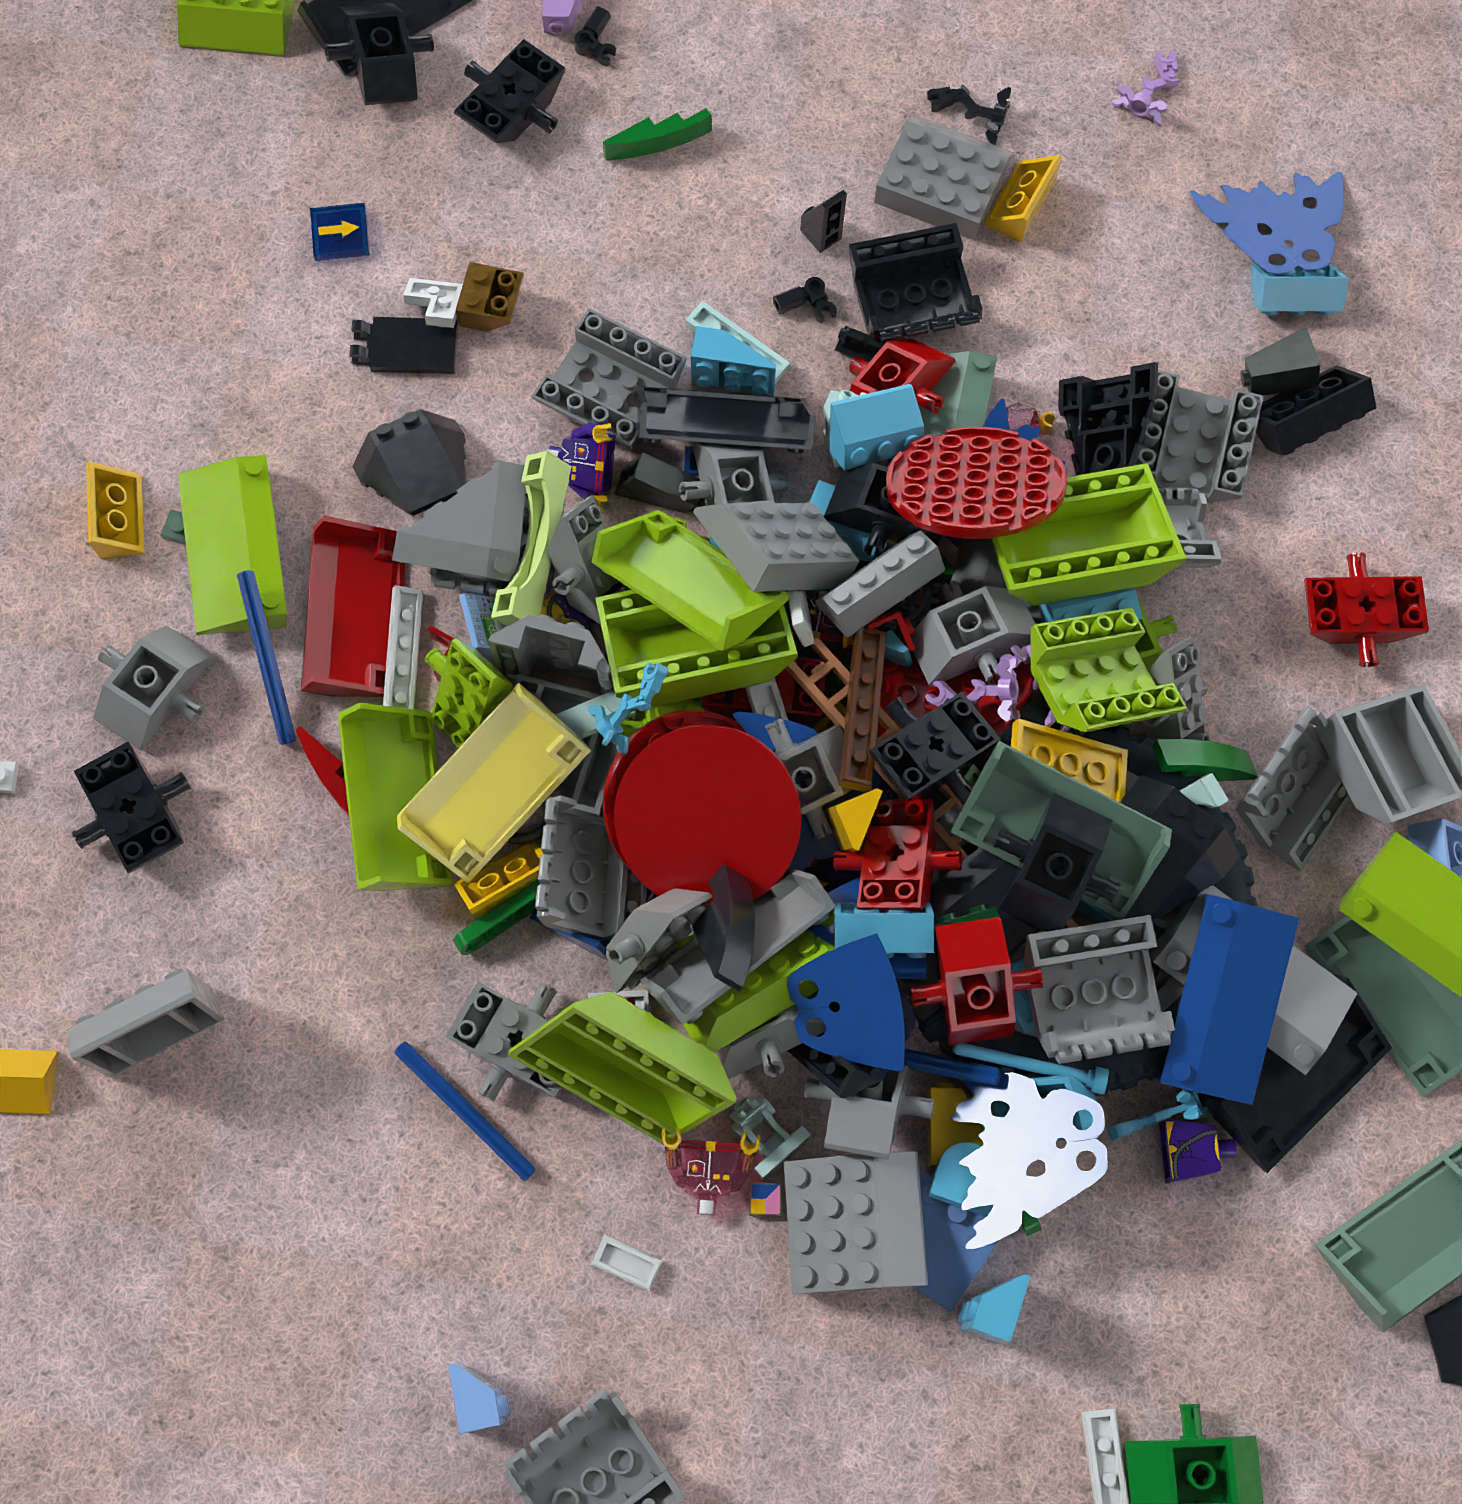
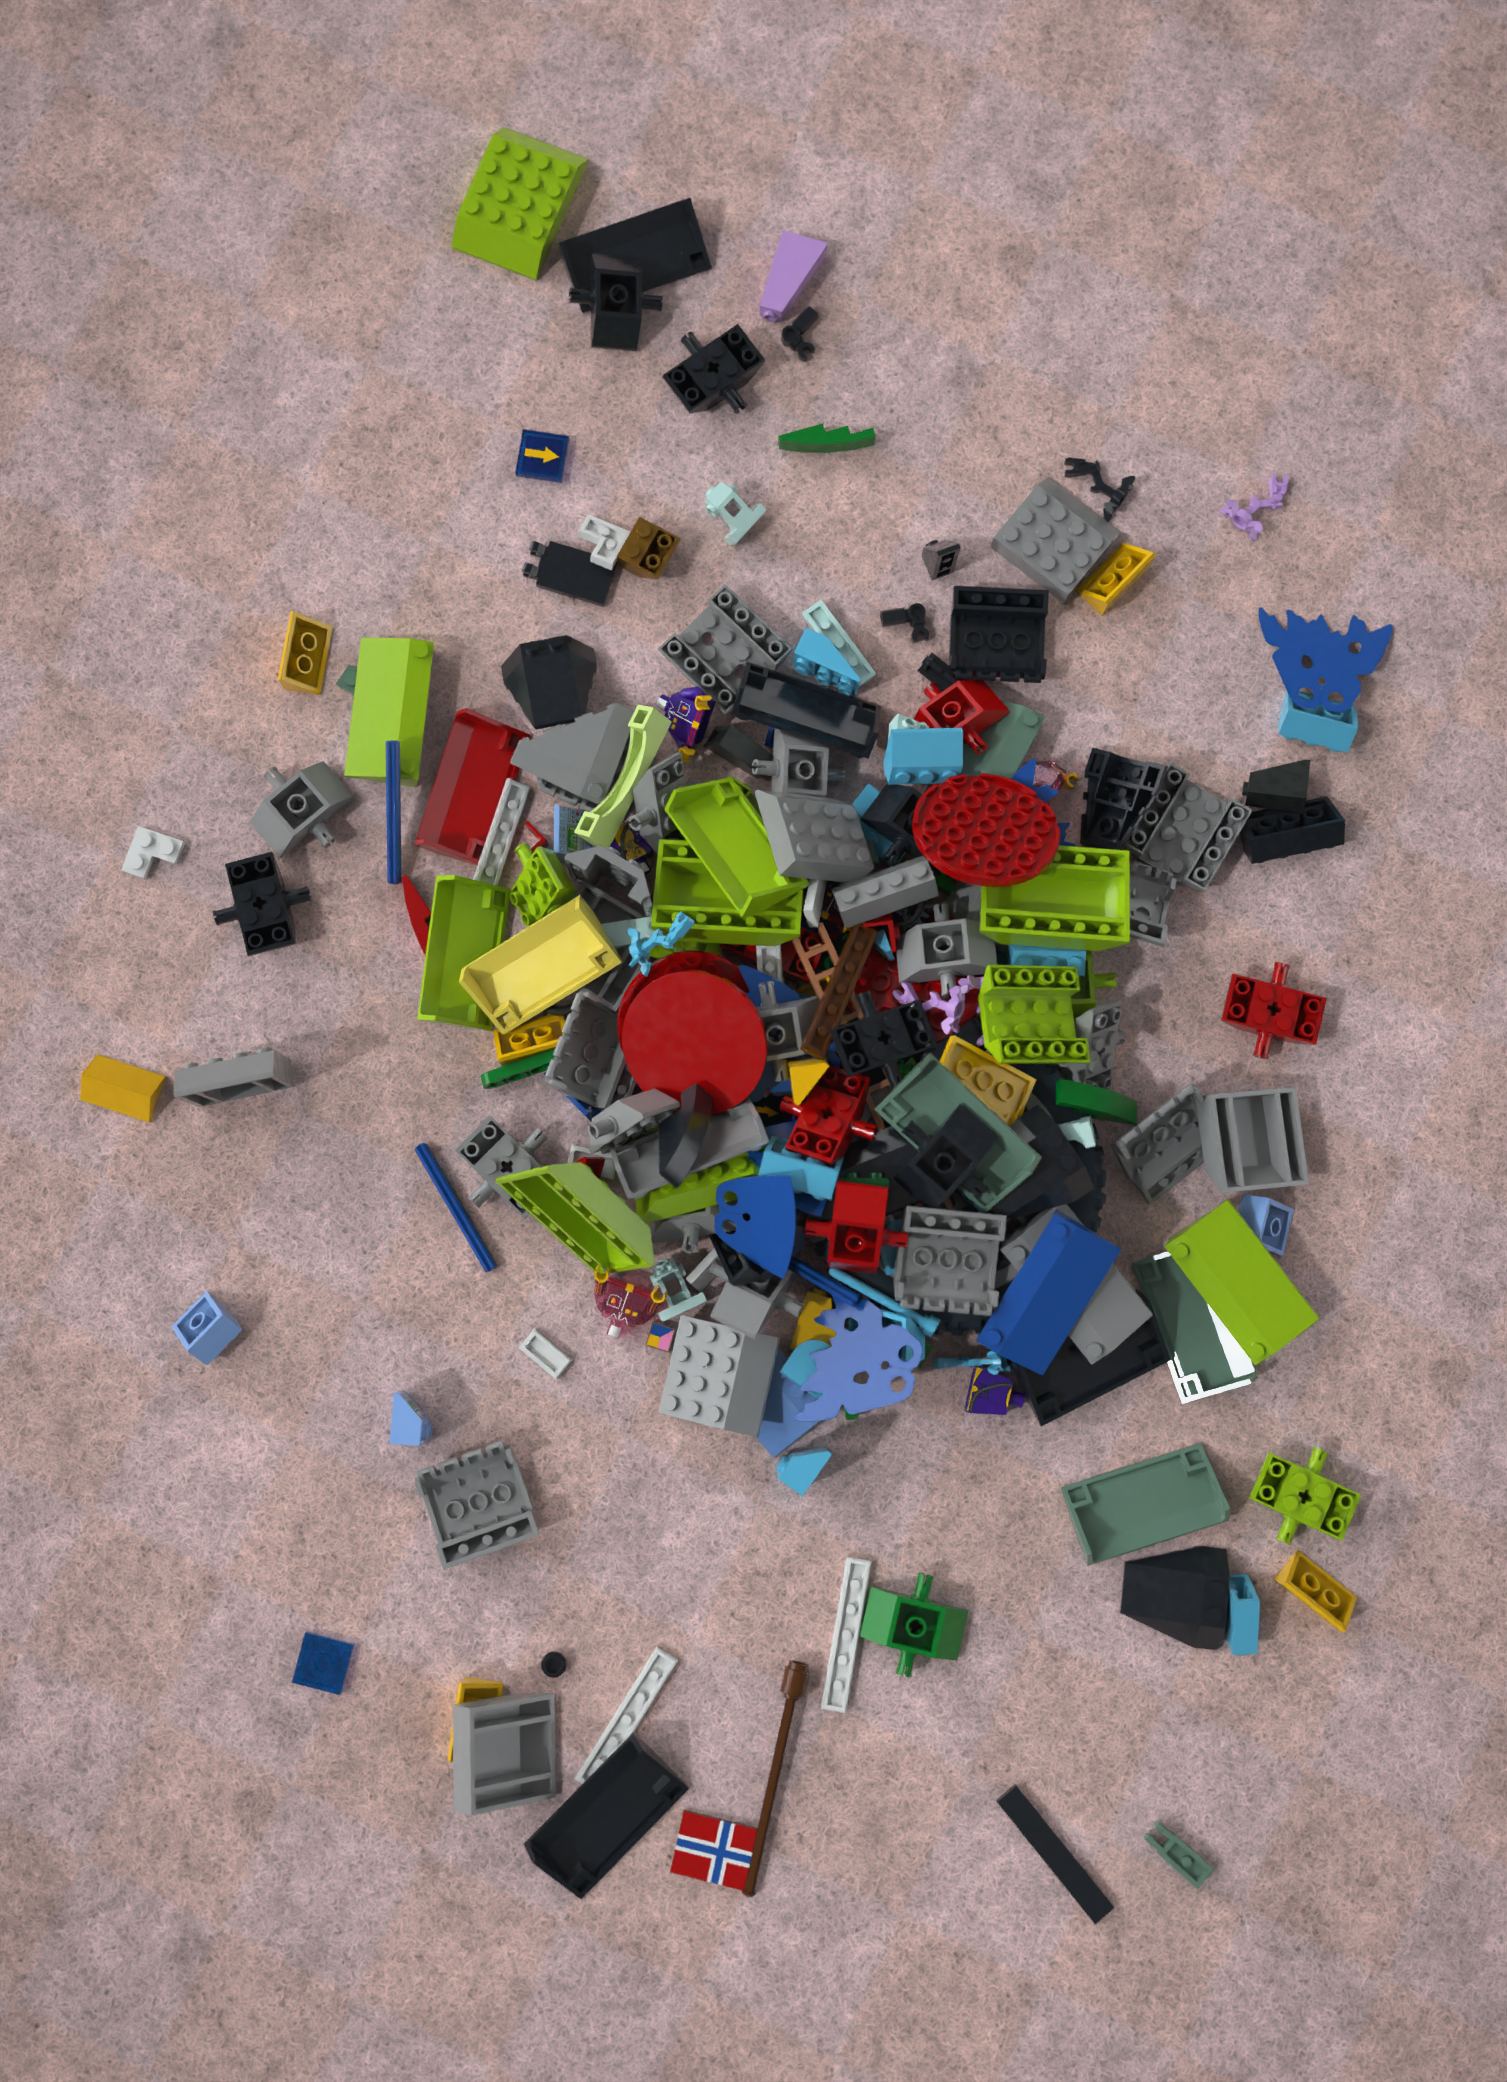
camera: 15 degrees right, 10 degrees up
(183, 1356) = (206, 1328): none -> light blue slope
(585, 244) = (718, 497): none -> light aqua tile
(795, 1105) = (700, 1275): none -> white tile

